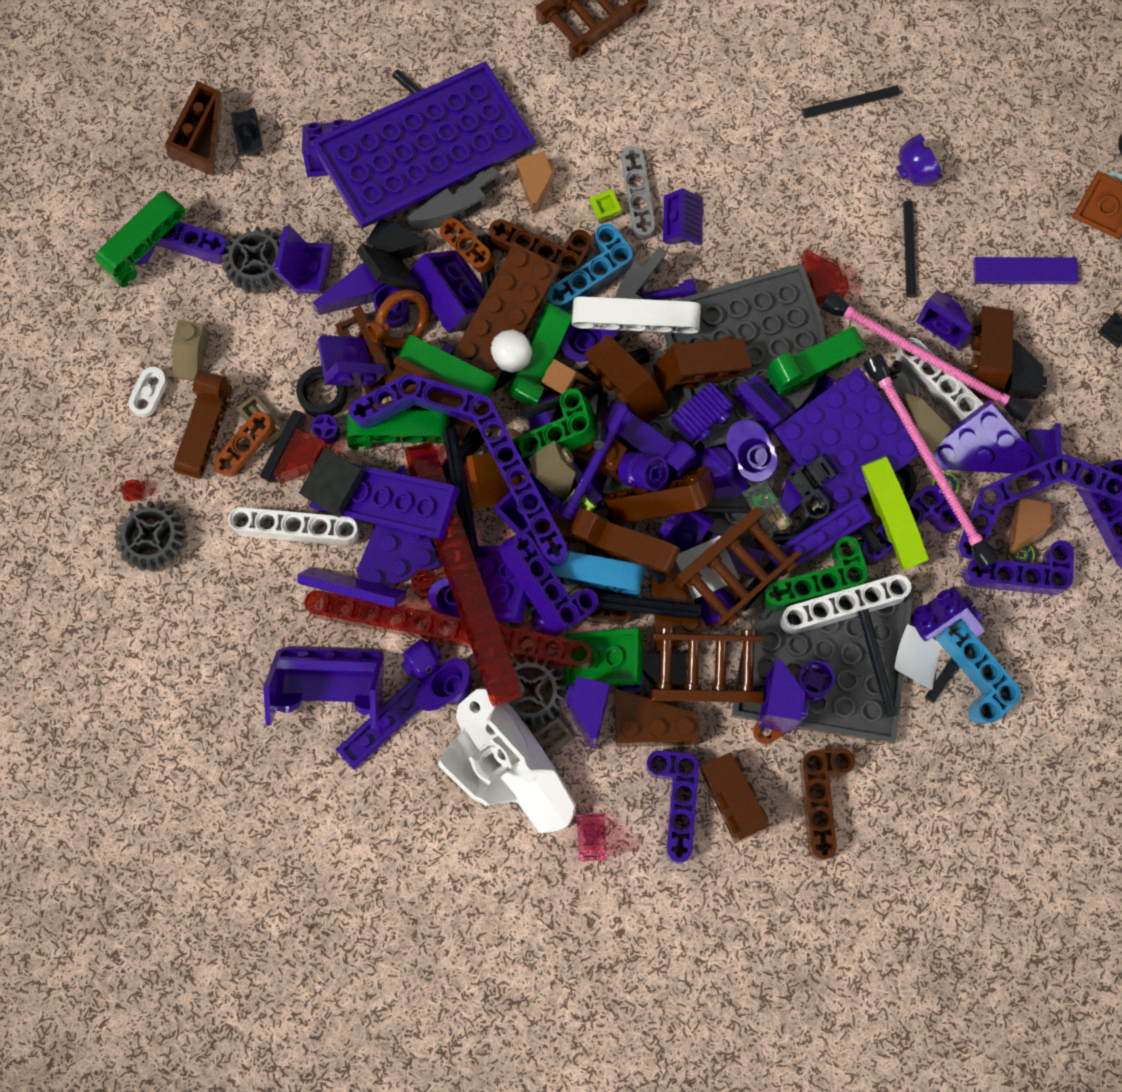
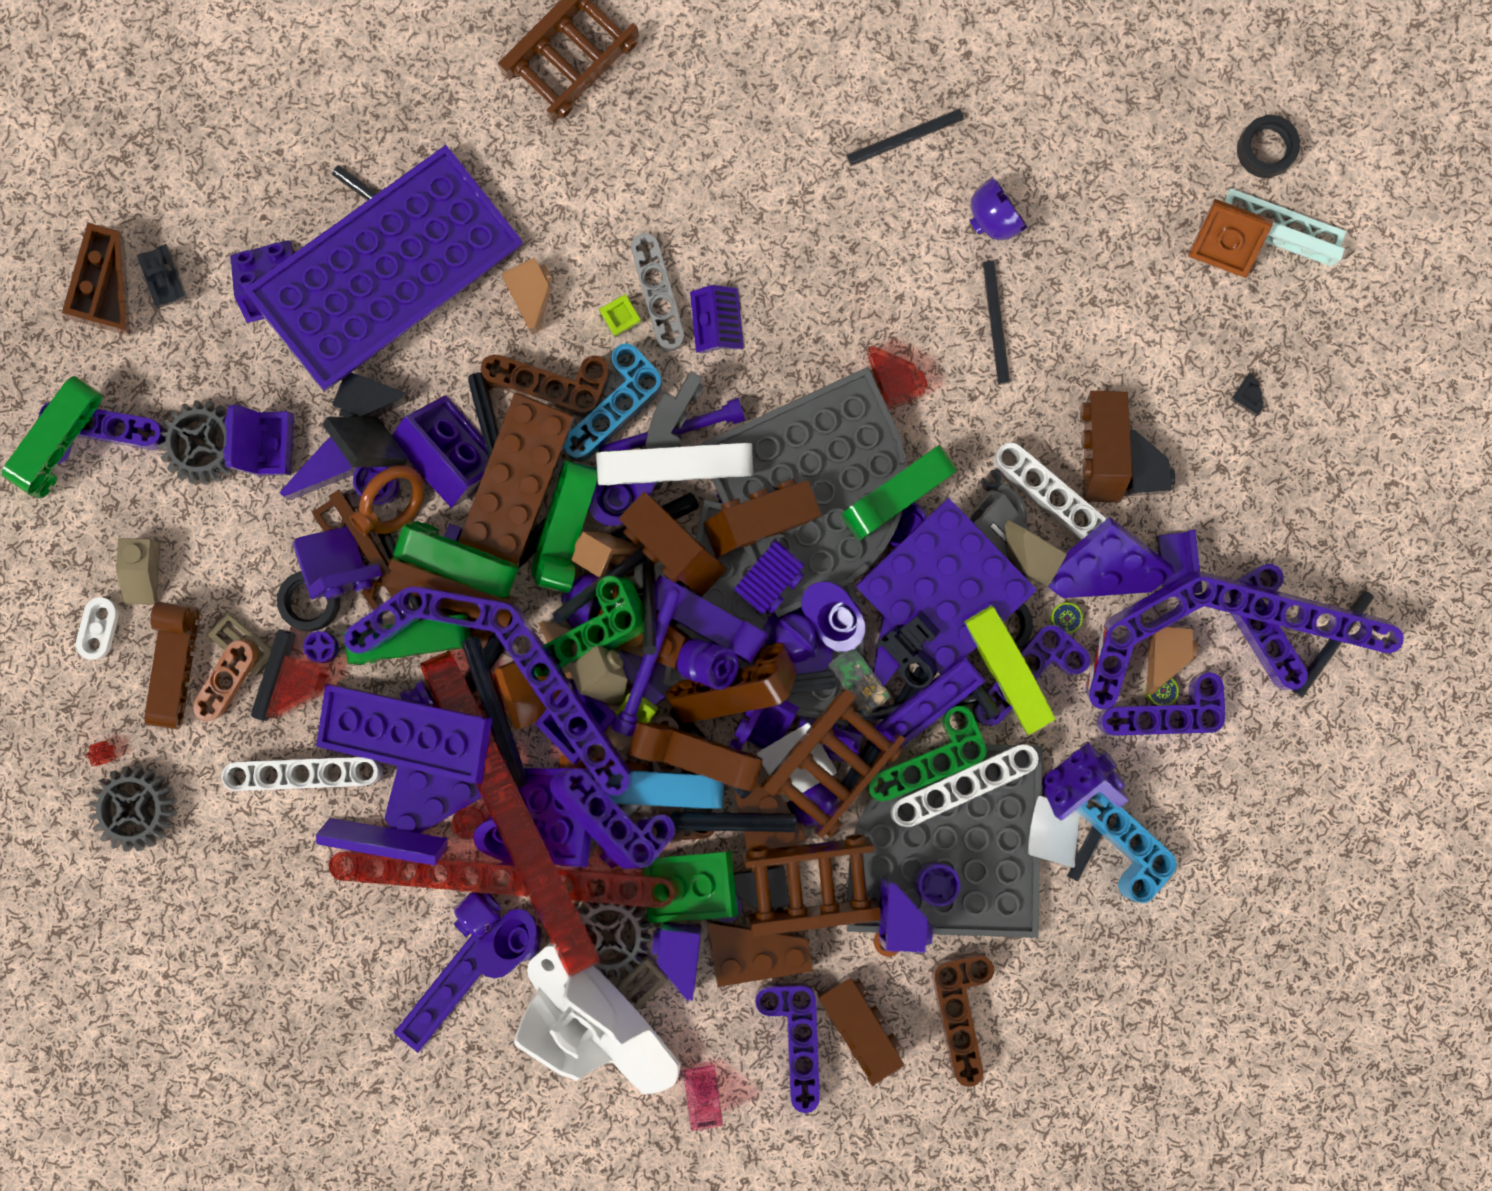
camera: 15 degrees left, 10 degrees up
(325, 676) = (365, 947): dark purple windscreen -> none
(332, 482) = (338, 717): pearl dark grey tile -> none
(445, 205) = (424, 345): dark grey slope -> none
(470, 254) = (470, 393): dark orange beam -> none
(511, 350) = (529, 529): white hair -> none
(762, 403) = (840, 553): dark purple panel -> none
(877, 662) = (1007, 851): black bar -> none
(945, 319) = (1047, 410): dark purple slope -> none
(981, 550) = (1117, 703): bright pink hose -> none
(1016, 407) = (1141, 516): bright pink hose -> none
(1025, 270) = (1138, 333): dark purple tile -> none

